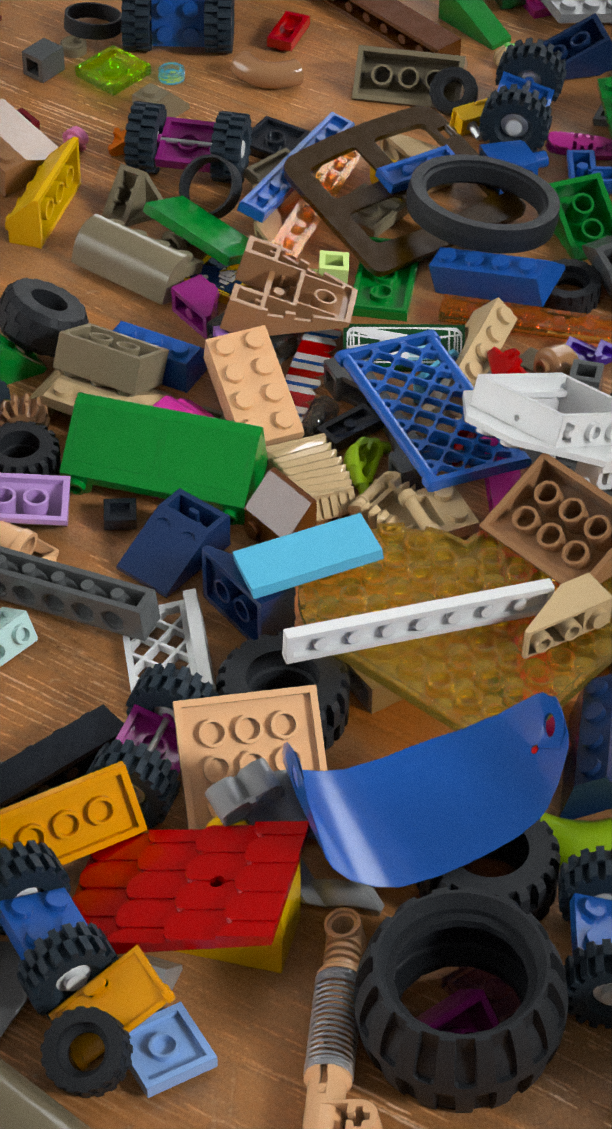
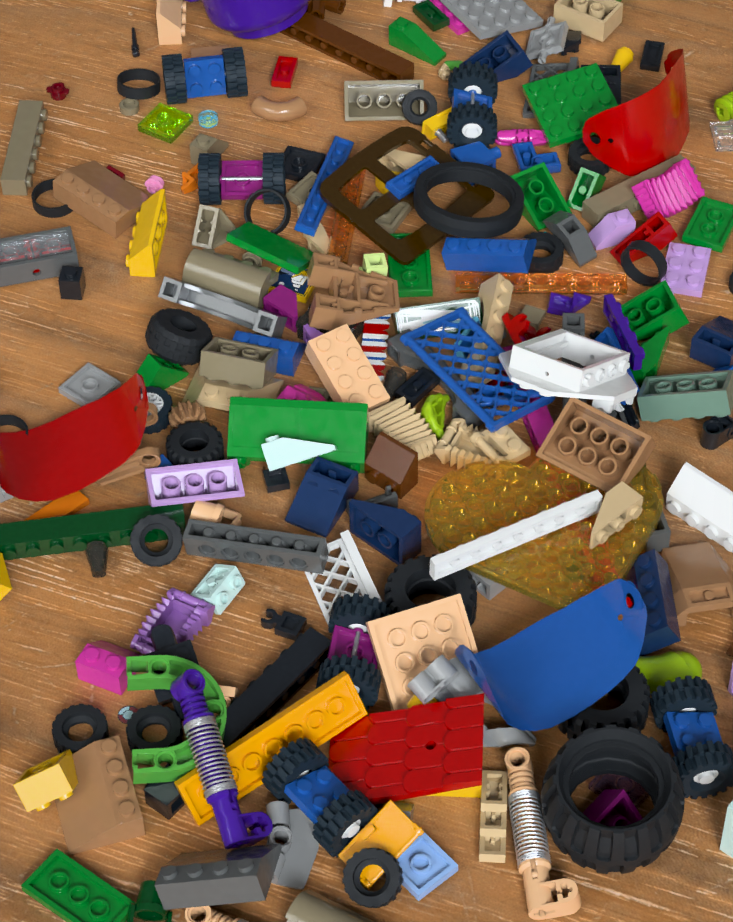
camera: 10 degrees left, 5 degrees up
(43, 60) = (111, 122): dark grey brick -> none
(72, 699) = (286, 626): none -> black plate
(115, 292) = (222, 306): none -> arch
(140, 476) = (288, 451): none -> light aqua slope
(288, 1001) = (493, 816): none -> tan slope
(307, 555) = (426, 497): medium azure tile -> none
(554, 359) = (548, 315): medium nougat head -> none

